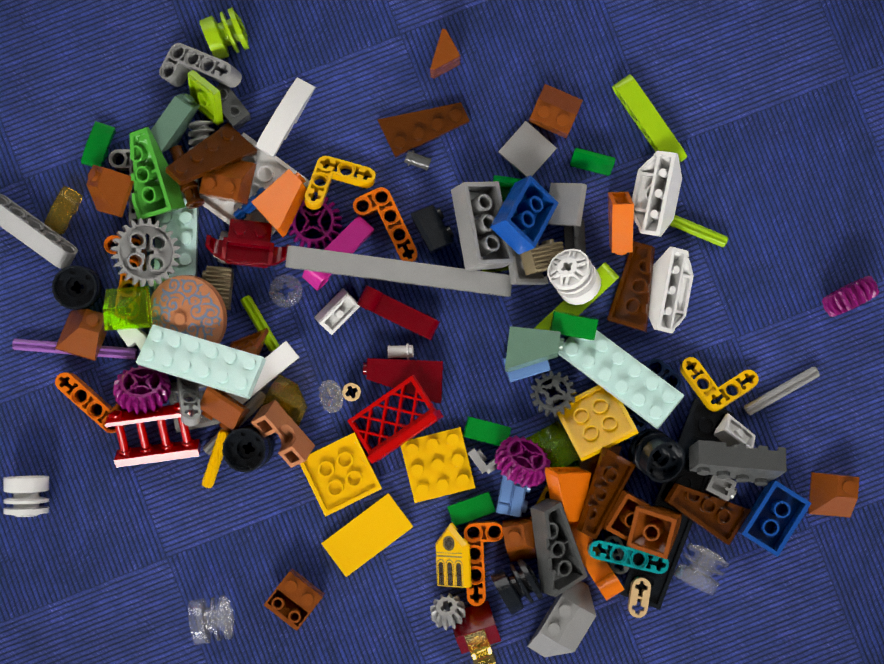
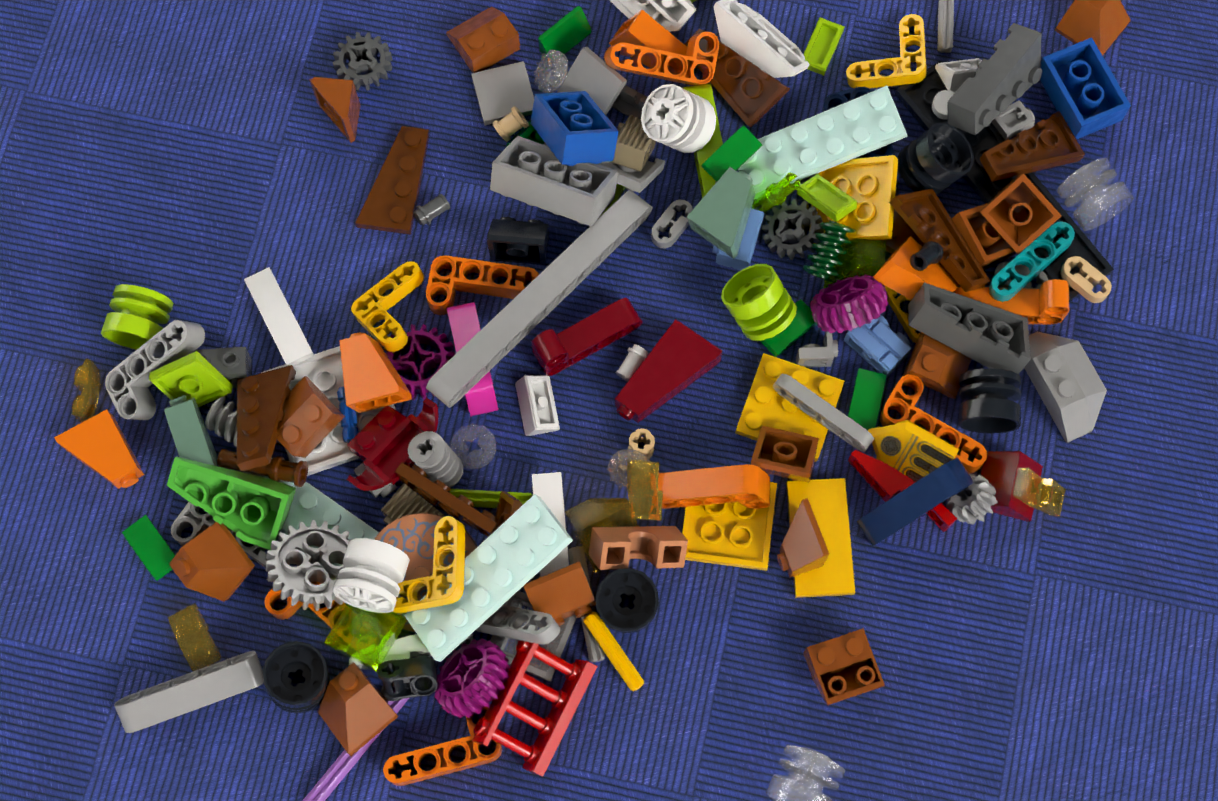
camera: 60 degrees left, 15 degrees down
(118, 354) = (411, 678): none -> black piece
(135, 74) = (103, 449): none -> orange slope
(154, 293) = (371, 575): none -> white wheel
(169, 33) = (88, 382): none -> clear yellow slope
(177, 334) = (438, 582): none -> yellow beam
(234, 298) = (439, 492): none -> reddish brown wing
(256, 277) = (435, 458): none -> light grey piece
(314, 417) = (643, 491): none -> clear yellow slope
(348, 453) = (716, 486): none -> orange beam
(348, 529) = (803, 544): none -> dark orange slope
(398, 483) = (785, 453): none -> dark orange slope
(403, 435) = (731, 410): red fence -> none
(420, 582) = (915, 501): none -> dark blue beam
(427, 558) = (890, 482): none -> red slope
(441, 494) = (823, 412): none -> light grey beam
(485, 406) = (759, 302): none -> lime wheel
(495, 46) = (363, 60): none -> dark grey gear
(506, 170) = (510, 123): none -> tan bush
(510, 310) = (666, 221): none -> light grey beam
(548, 428) = (828, 250): none -> dark green piece
(567, 167) = (555, 78): none -> clear gear
(567, 369) = (776, 193): none -> clear neon green pin
(584, 493) = (929, 254): none -> black pin
(585, 403) = (827, 197): none -> lime tile
(609, 239) = (660, 59): none -> orange beam
(697, 330) = (822, 45): none -> lime tile
(703, 433) = (939, 103): none -> white tile

